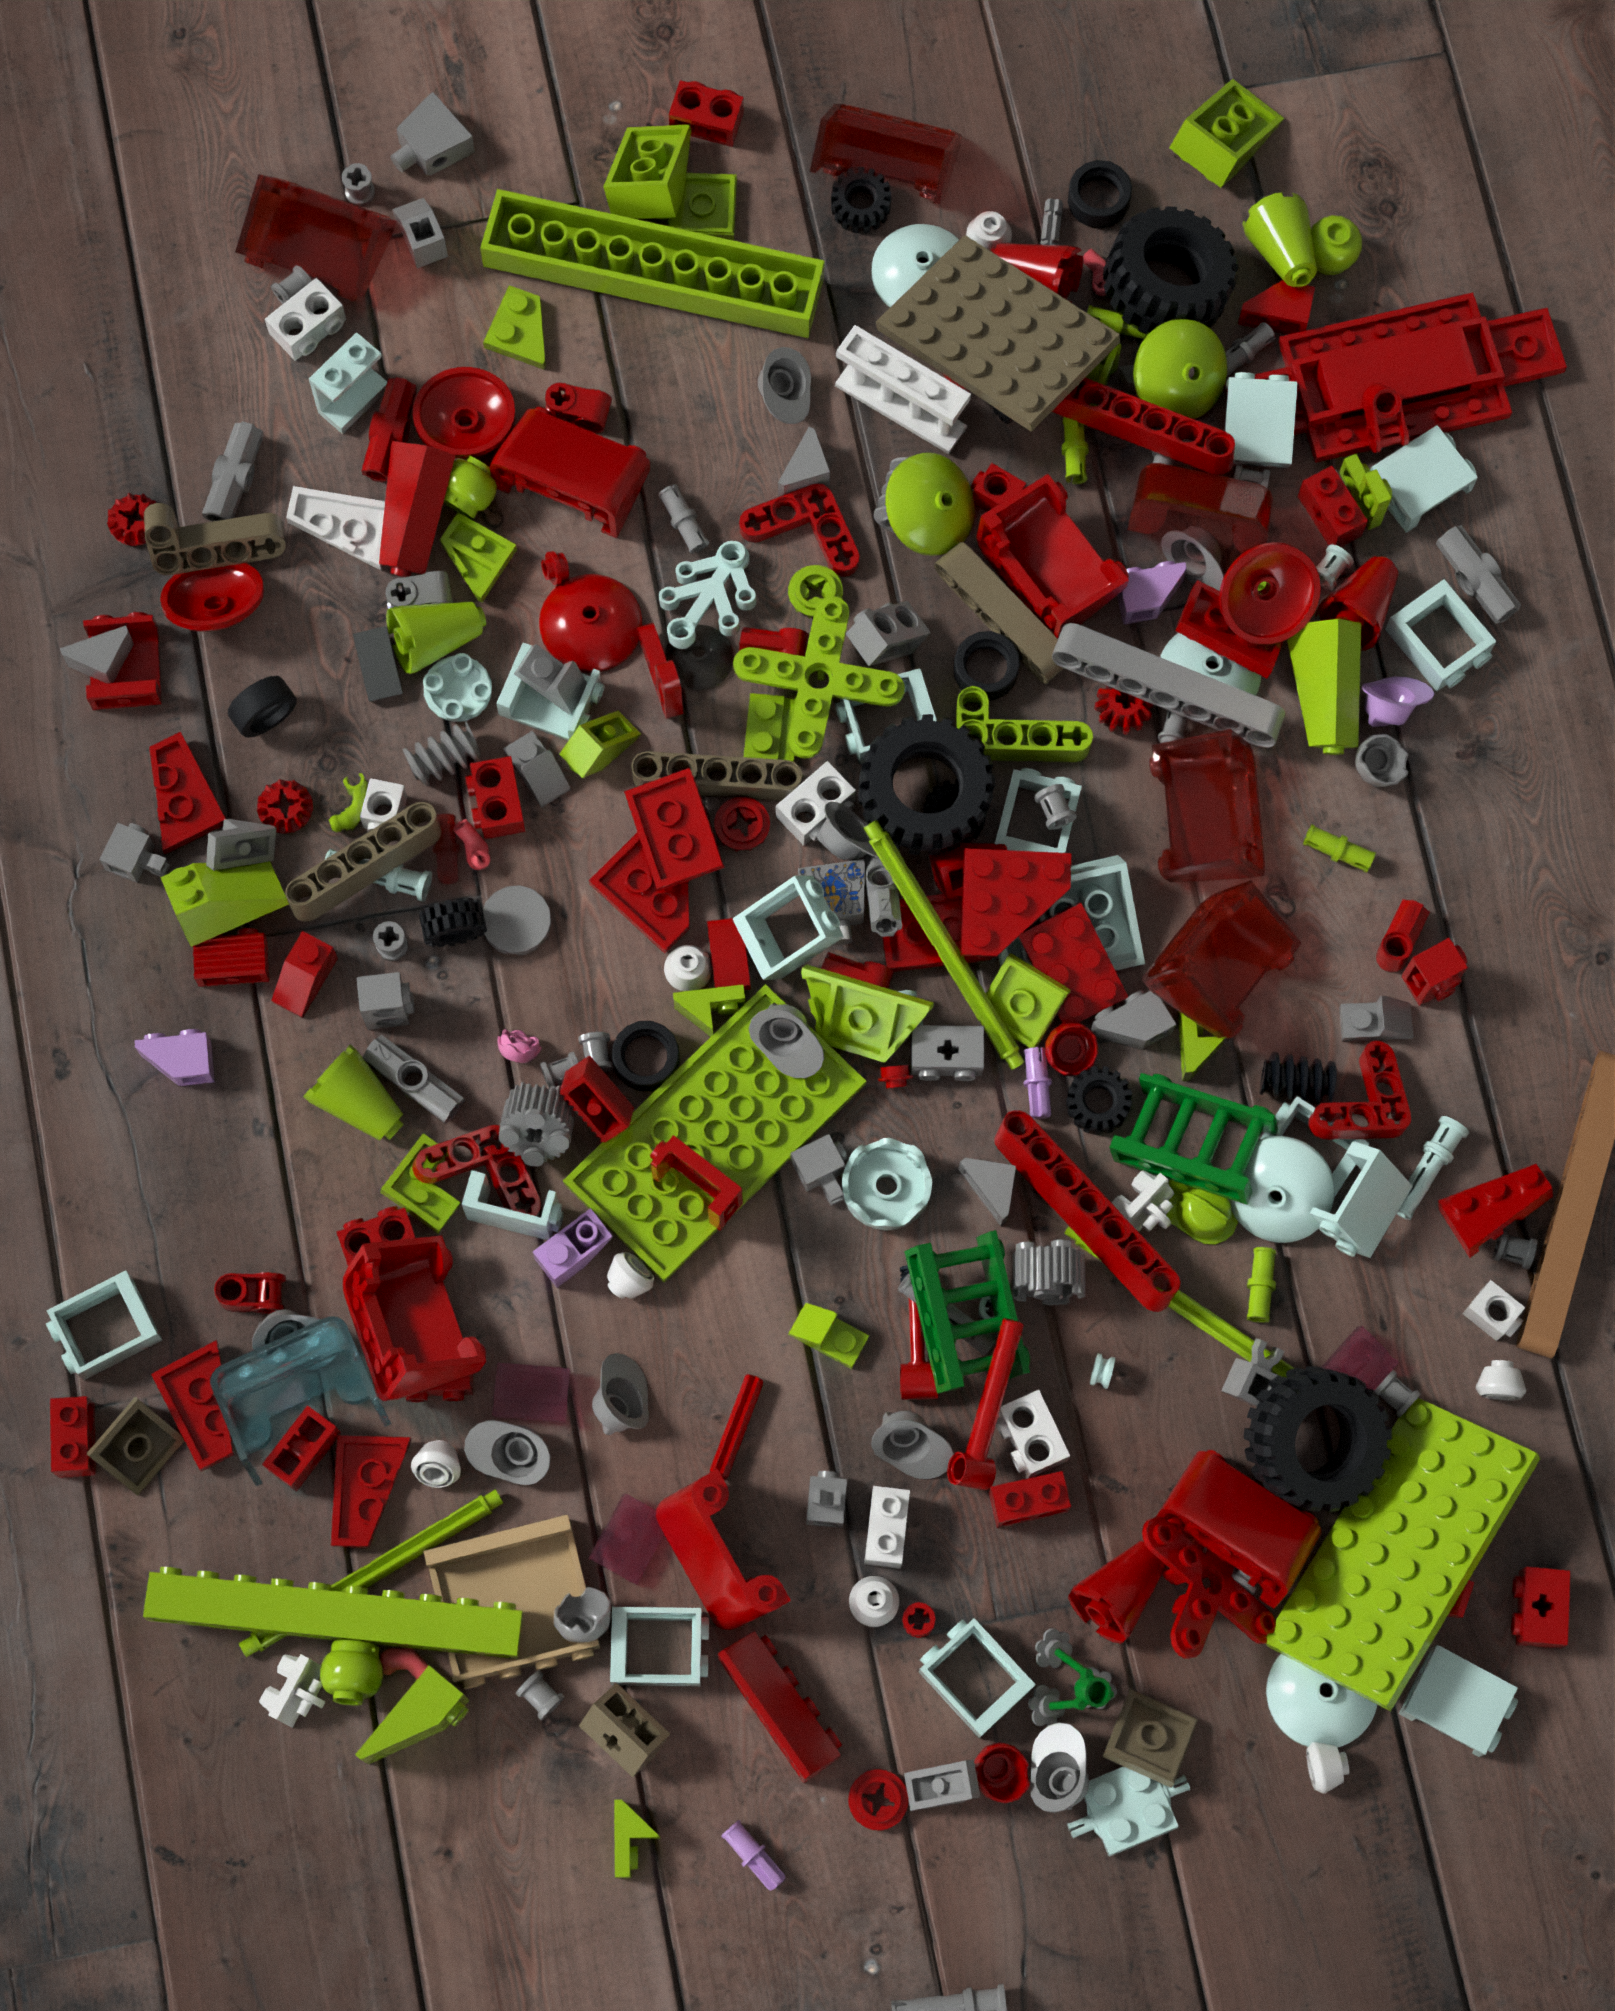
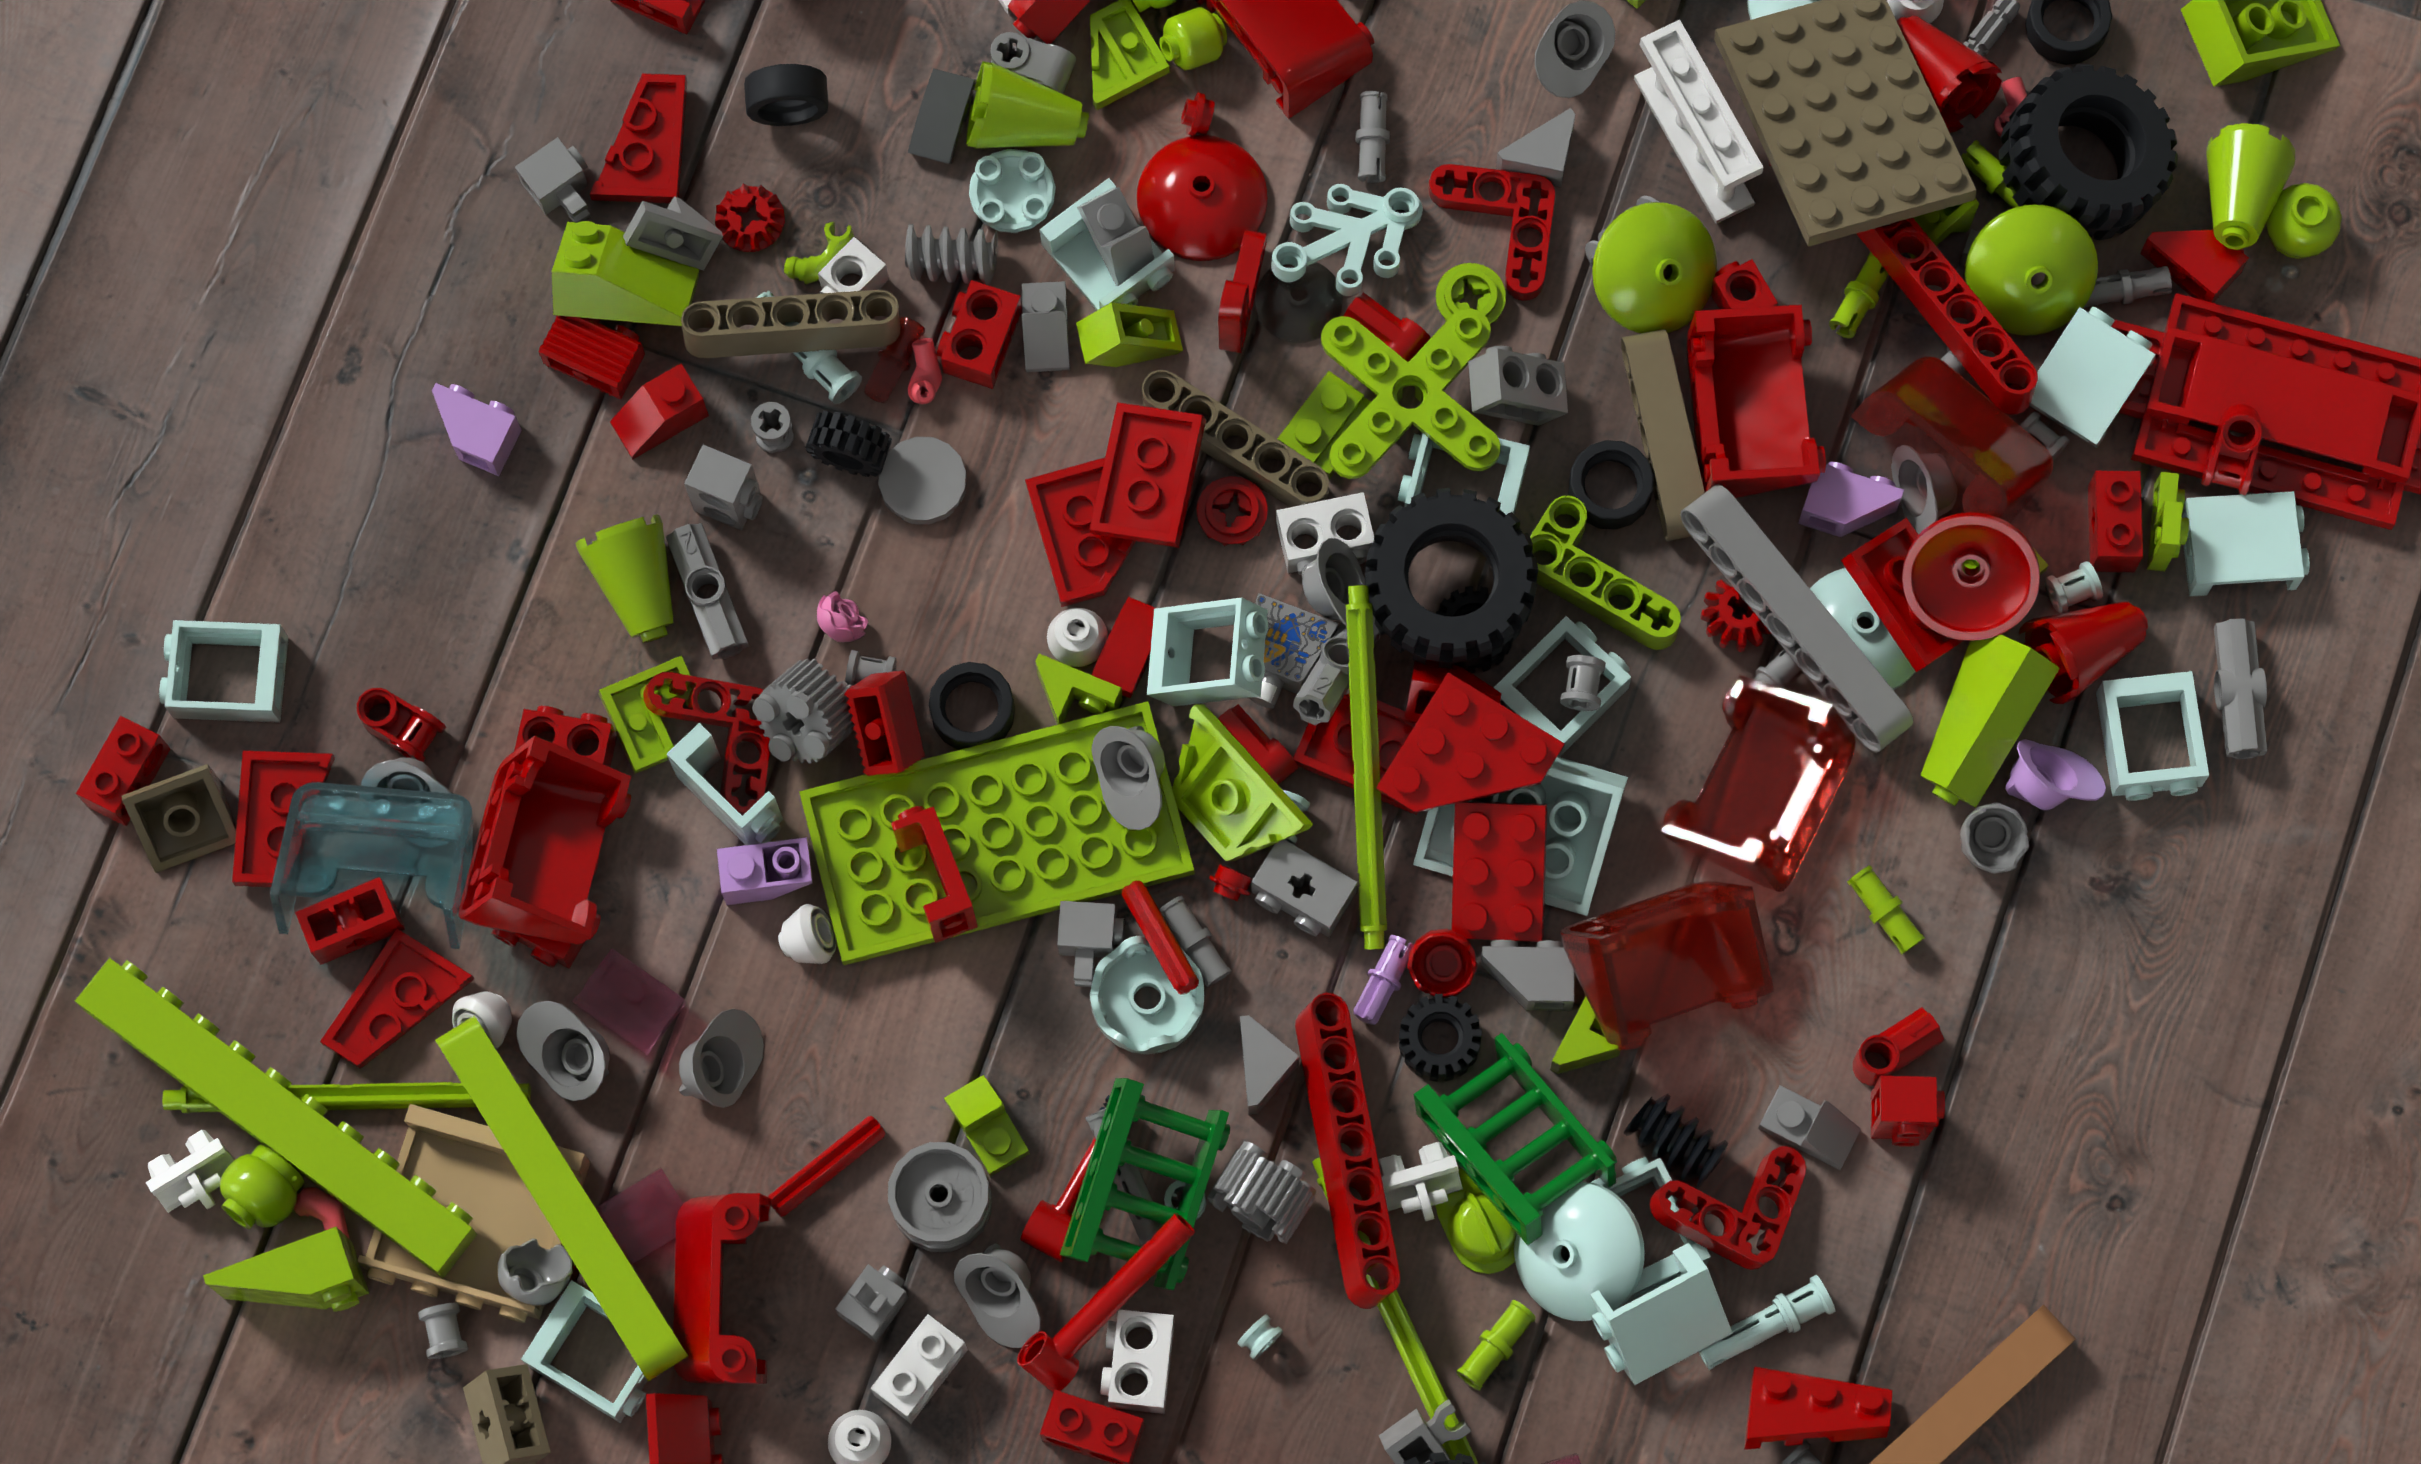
camera: 35 degrees right, 0 degrees up
(521, 517) = (1193, 38): none -> lime head
(572, 1553) = (561, 1198): none -> lime beam
(596, 1046) = (922, 670): light grey bush -> none
(830, 1423) = (939, 1169): none -> light grey wheel
(874, 1139) = (1160, 937): none -> red axle
(893, 1127) = (1194, 940): none -> light grey pin
(1026, 1000) = (1423, 880): lime tile -> none

